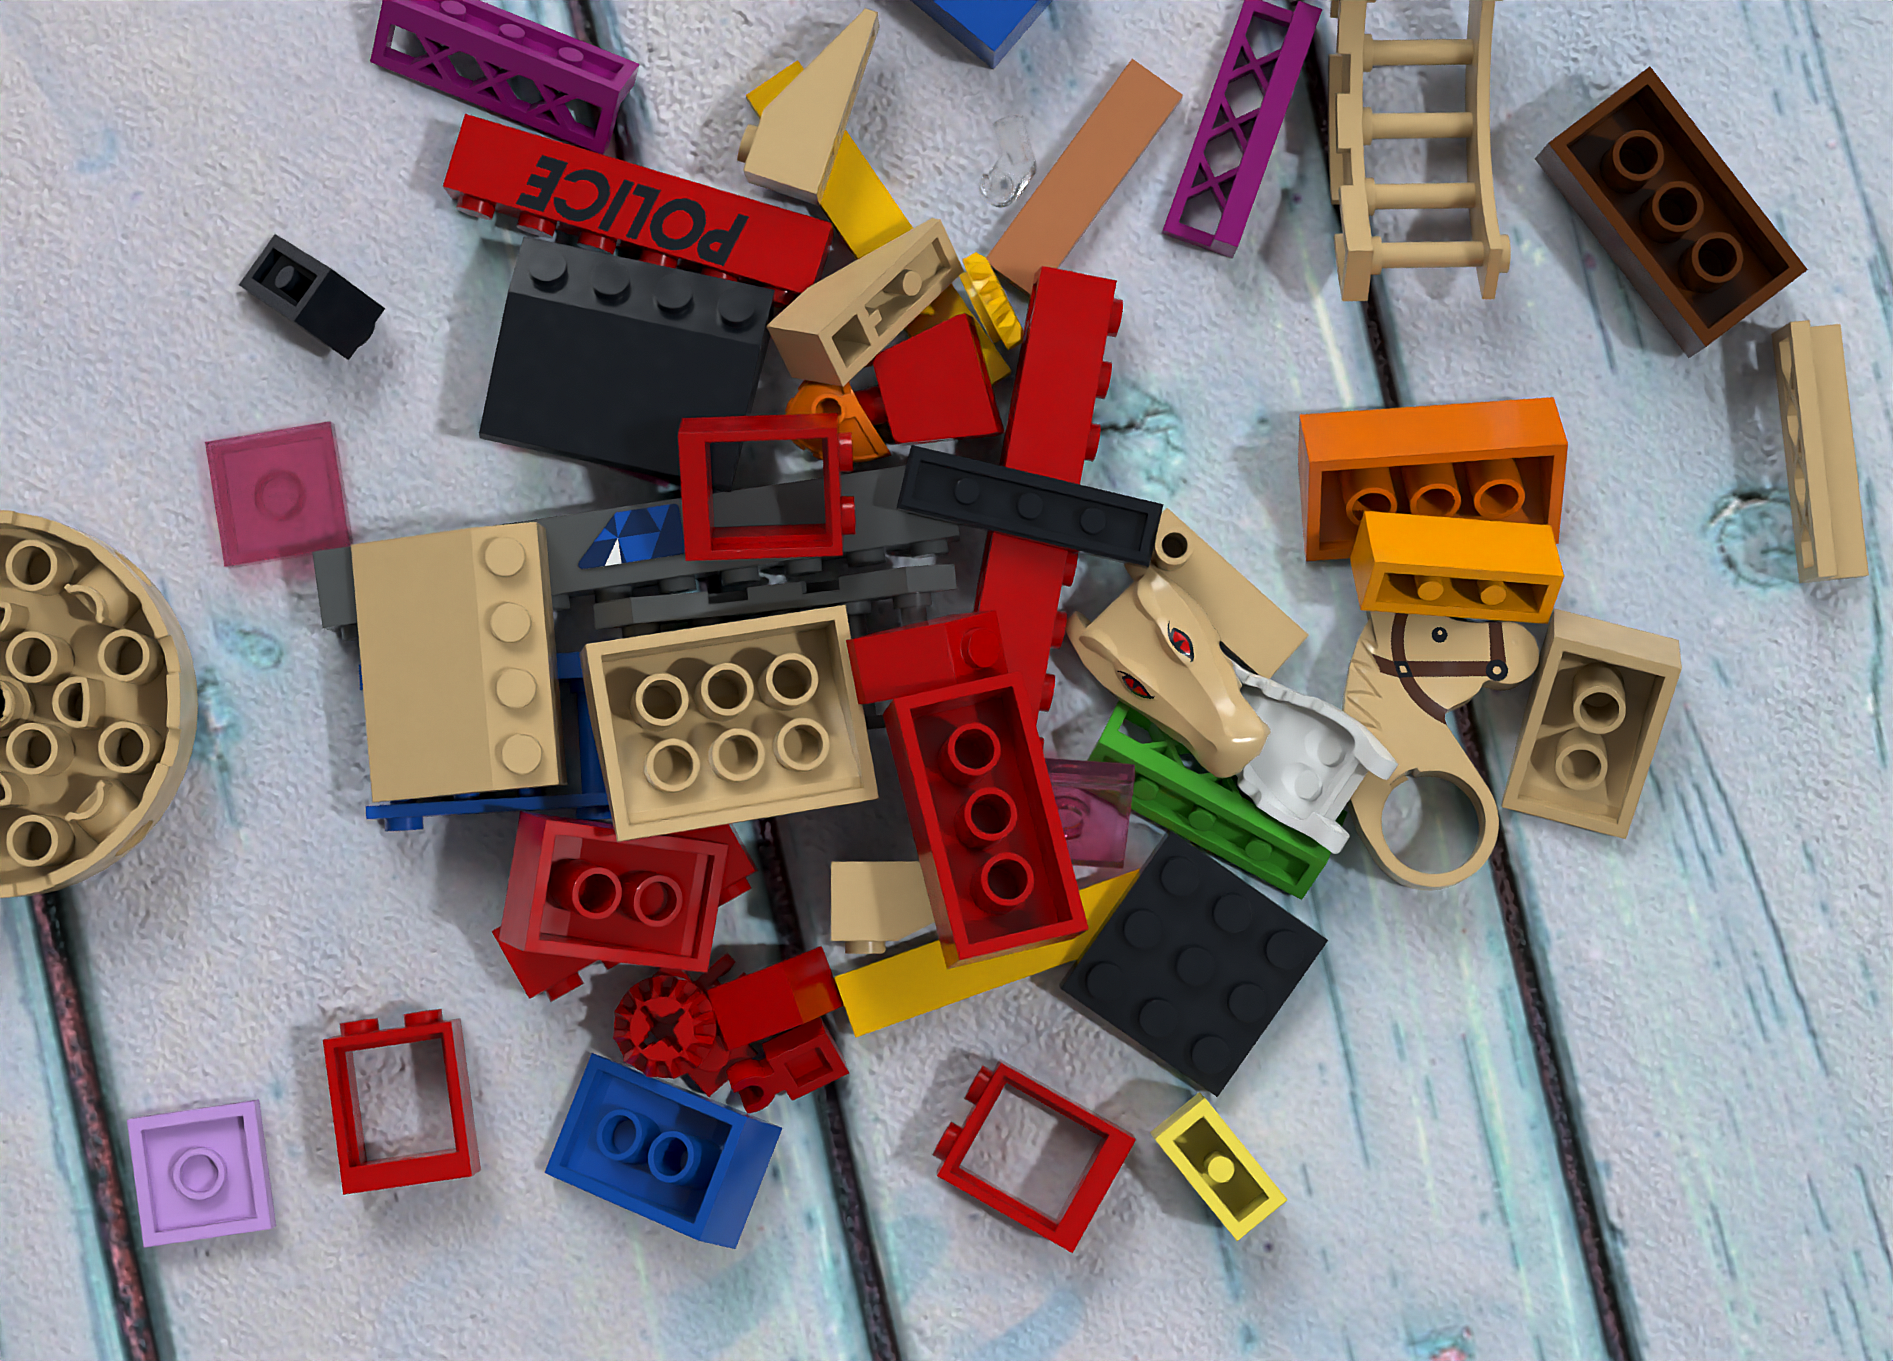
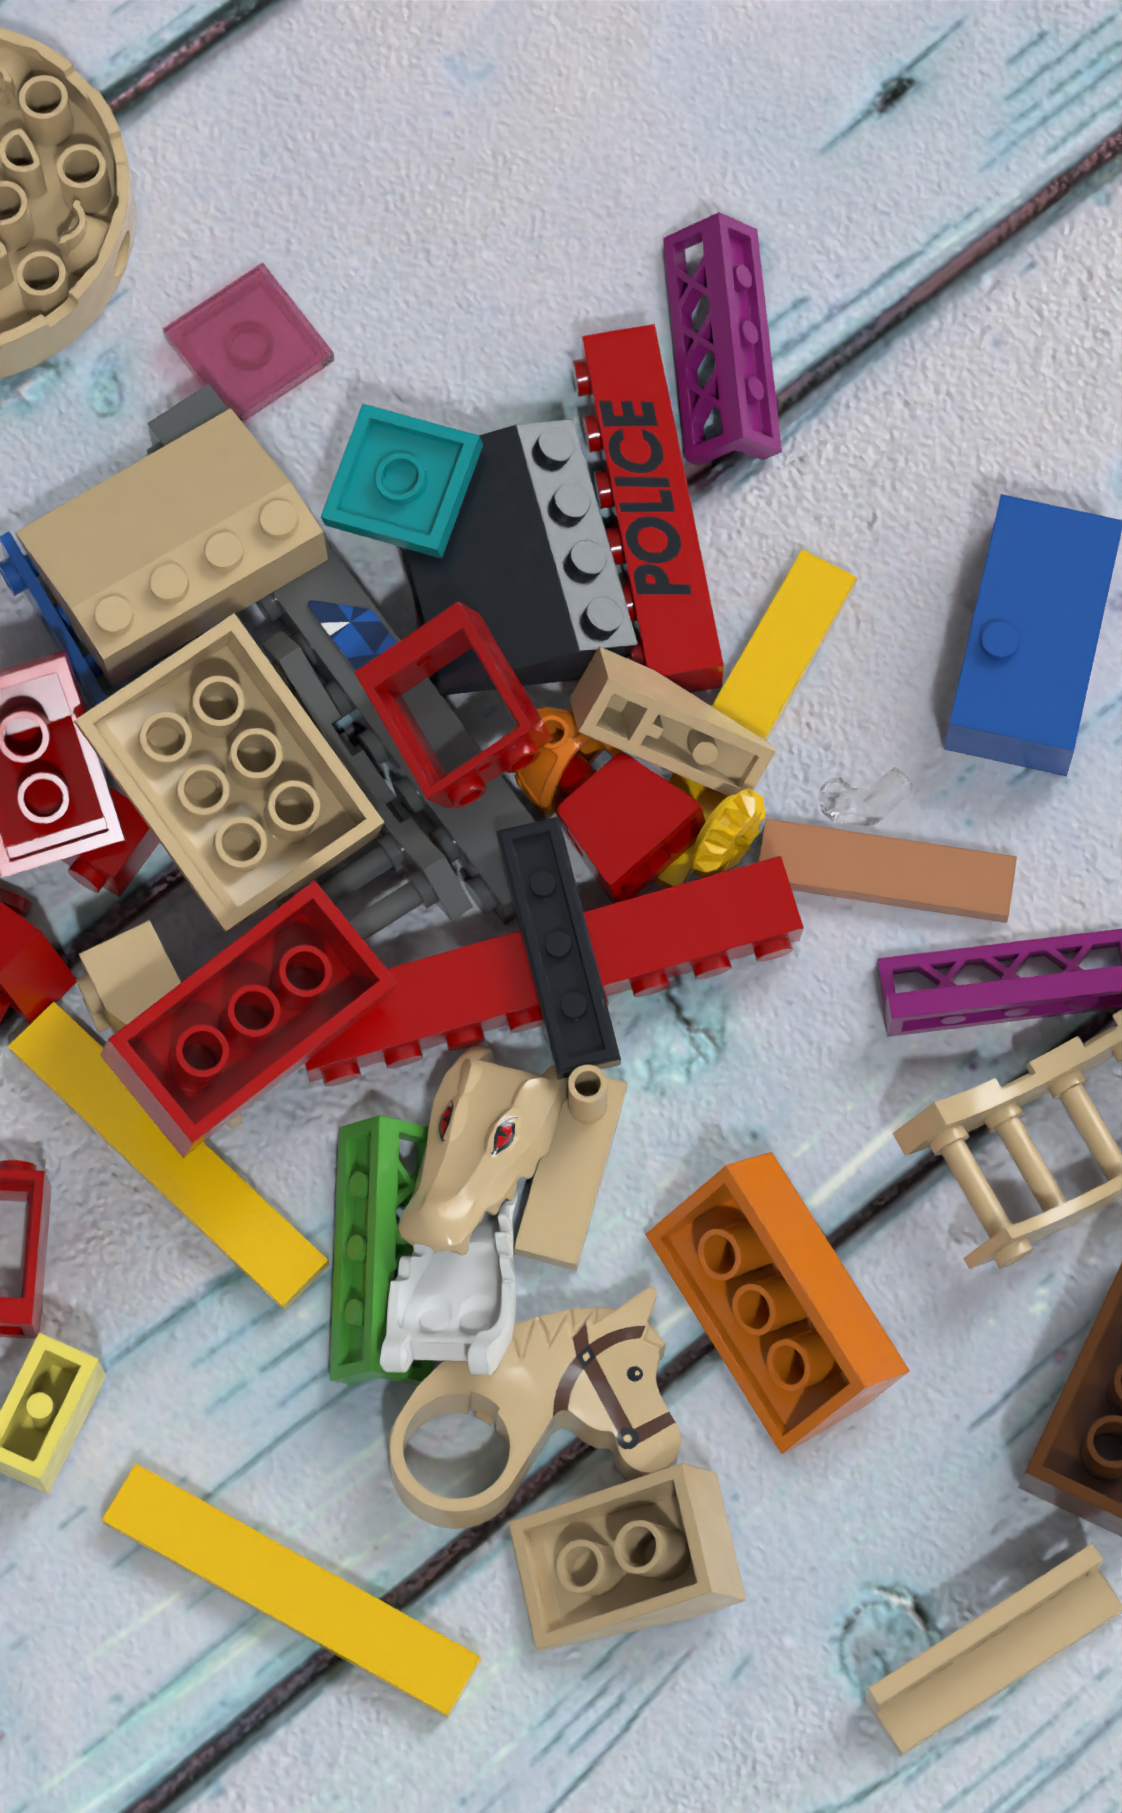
camera: 65 degrees right, 15 degrees down
(312, 296) = (432, 287): black slope -> none
(512, 423) = (402, 480): none -> teal plate
(806, 122) = (806, 604): tan slope -> none
(926, 656) = (374, 907): red slope -> none
(1093, 809) = (305, 1129): clear pink tile -> none
(1193, 962) = (222, 1307): black plate -> none
(1456, 567) = (703, 1354): light orange brick -> none
(1468, 1022) = (292, 1590): none -> yellow tile

